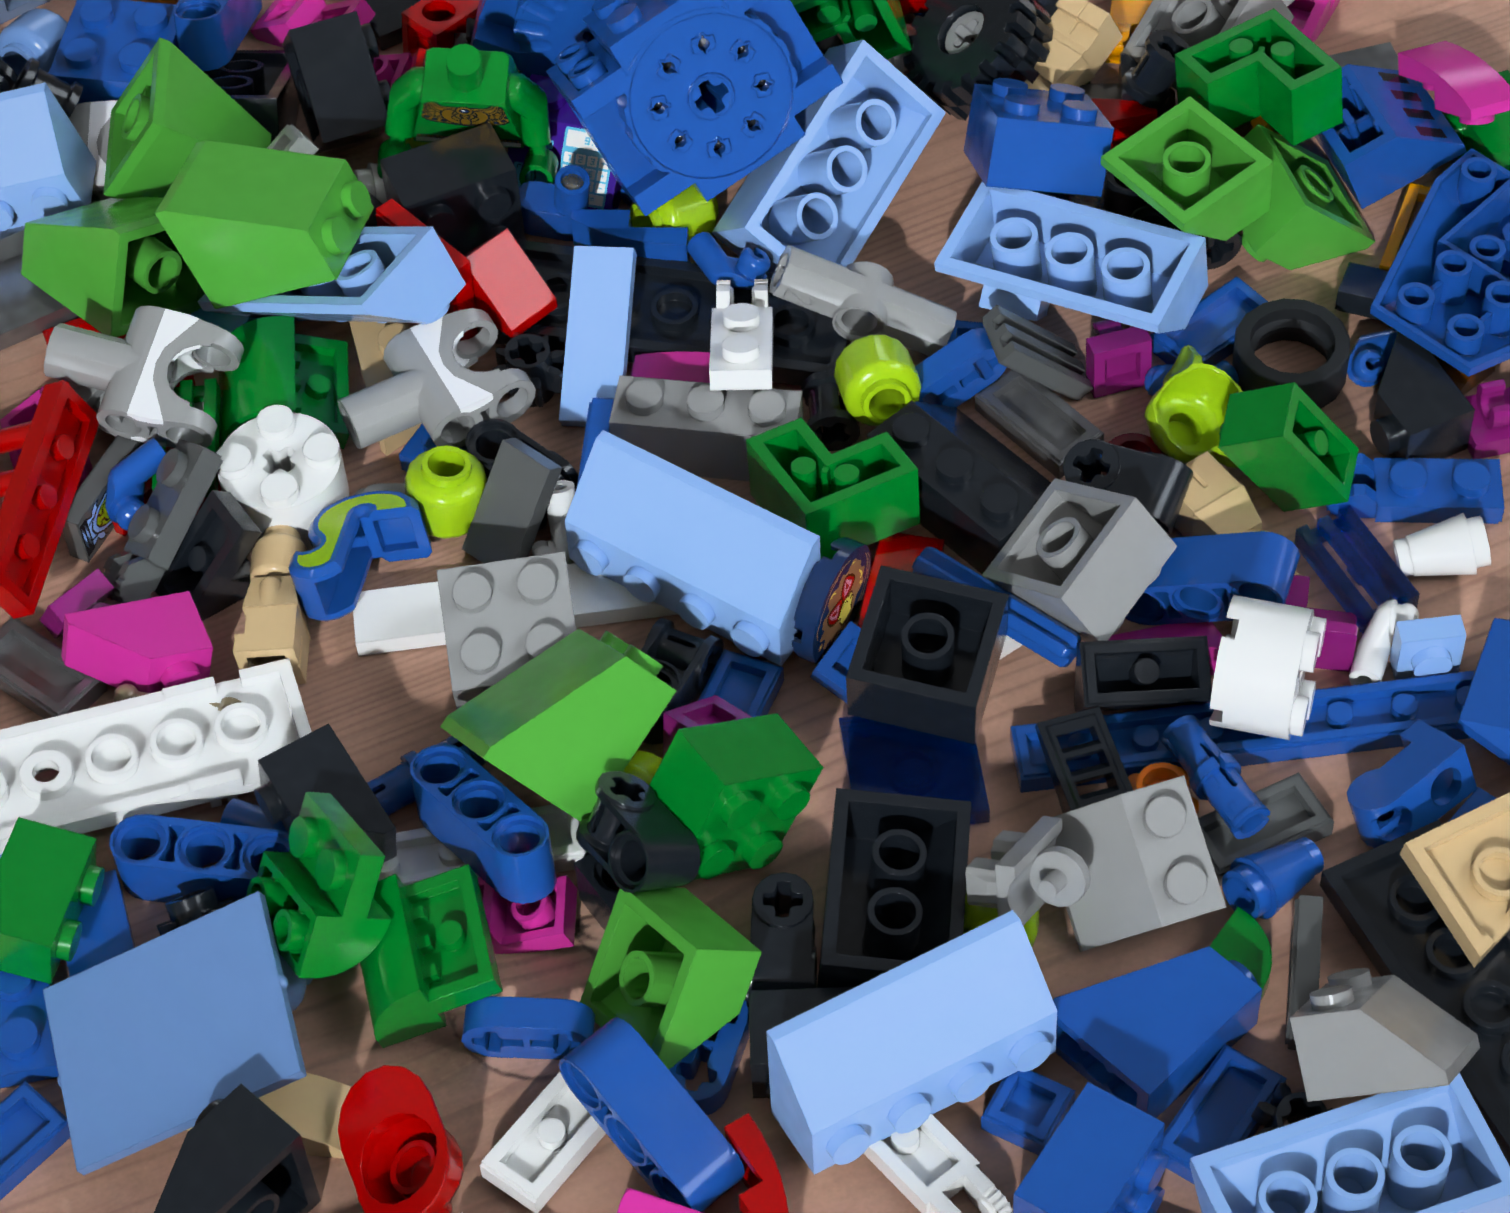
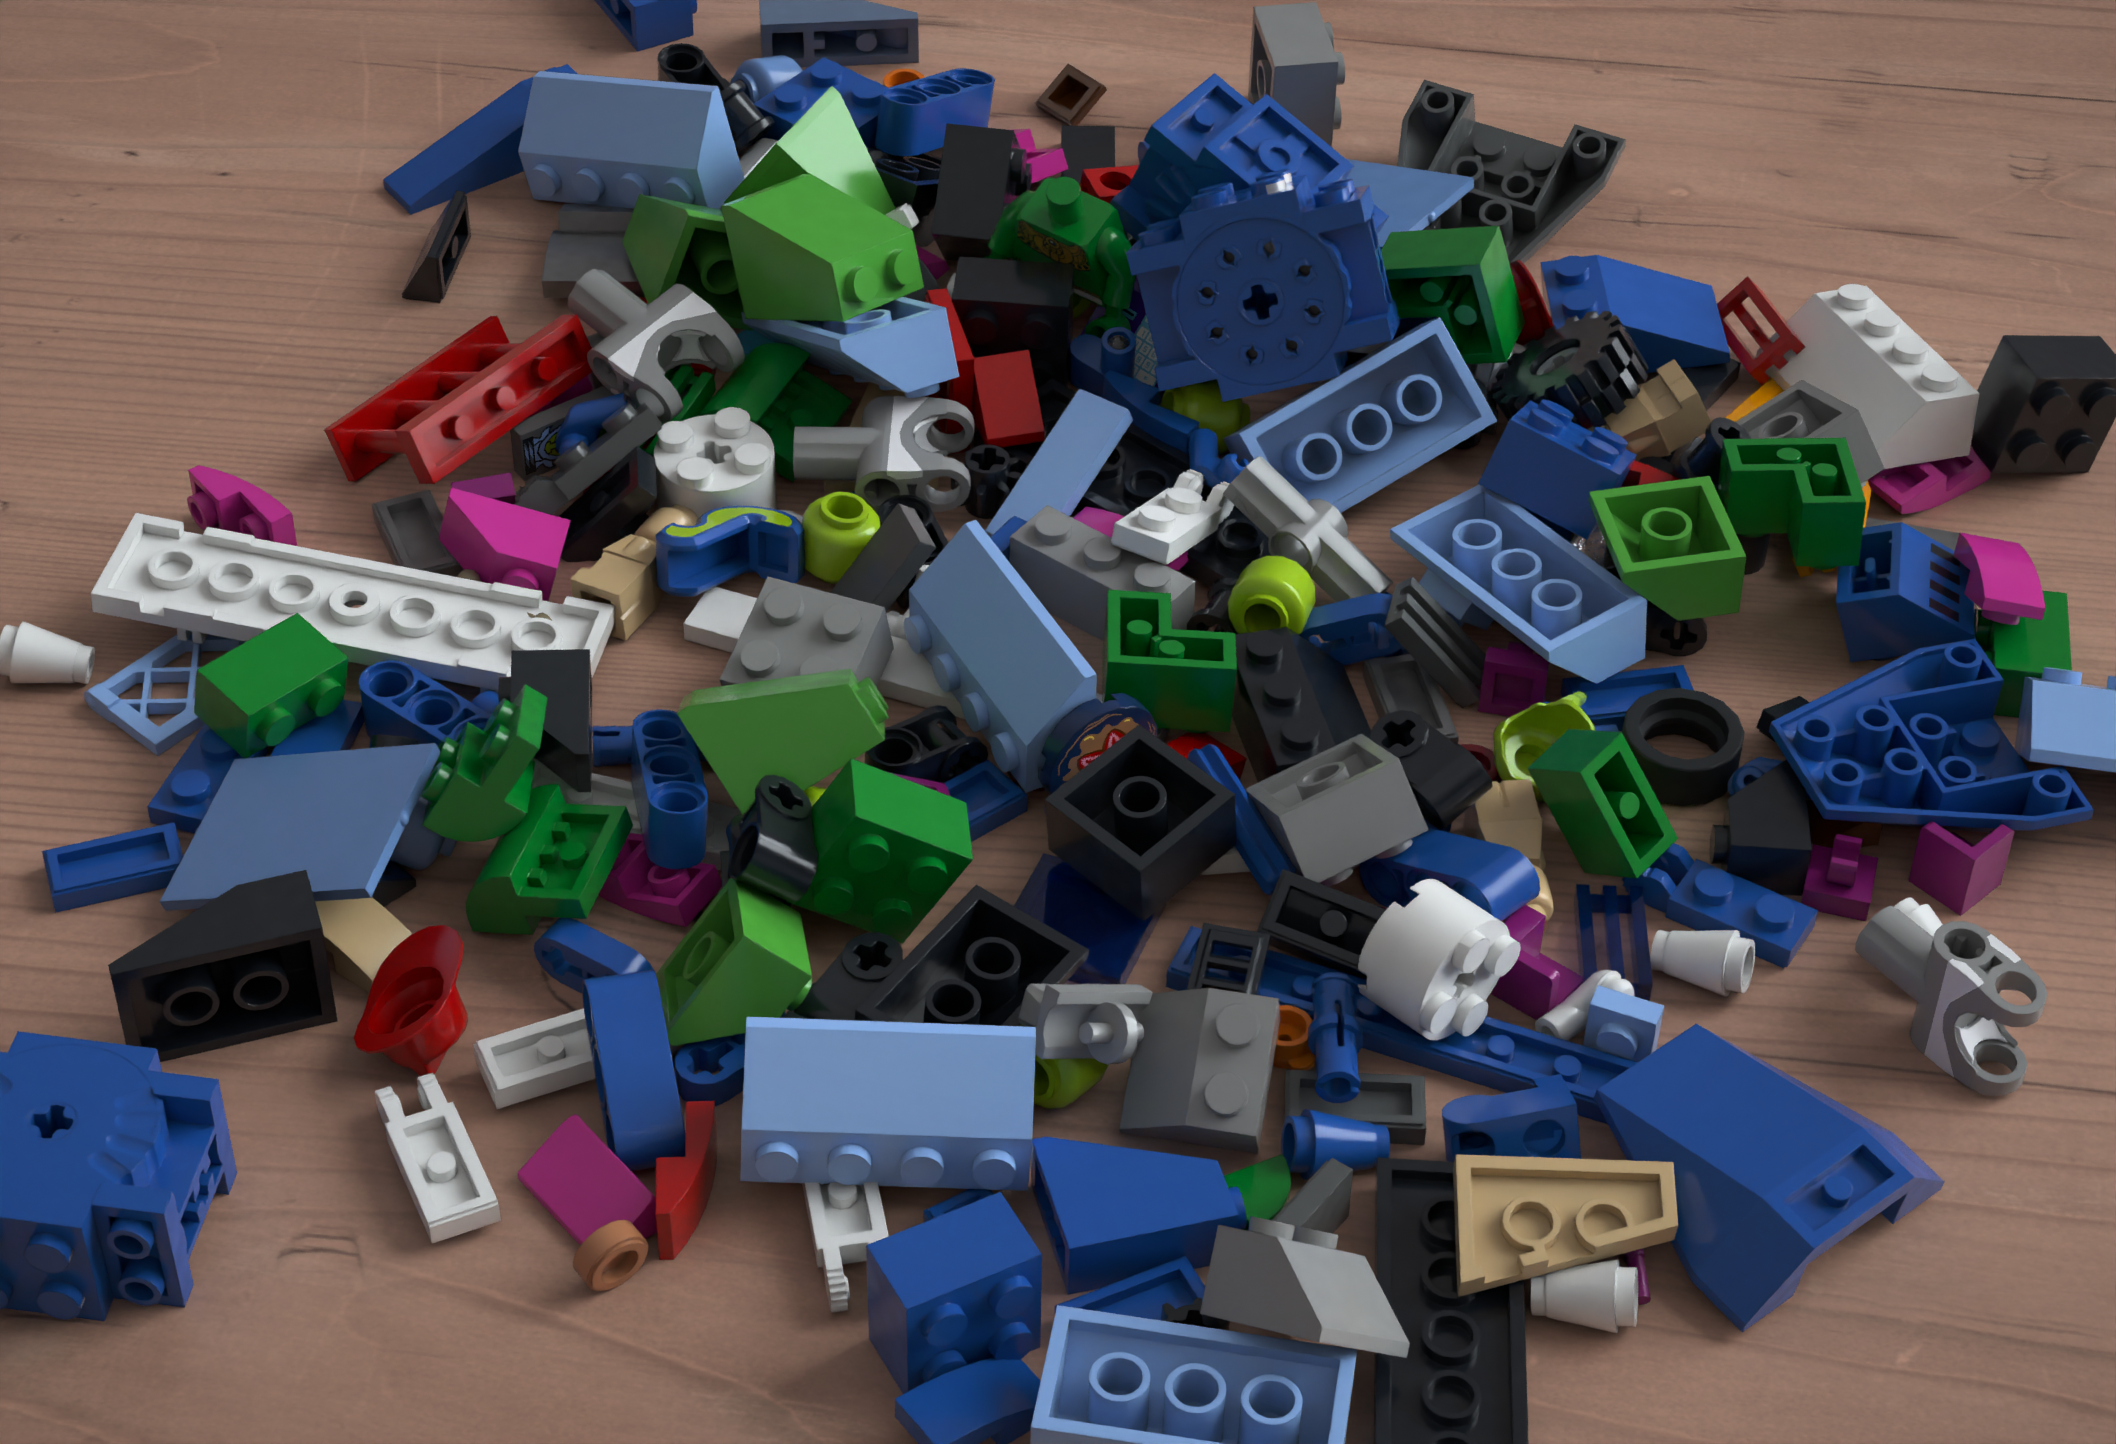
camera: 25 degrees right, 10 degrees down
(1308, 212) = (1784, 629): bright green slope -> none

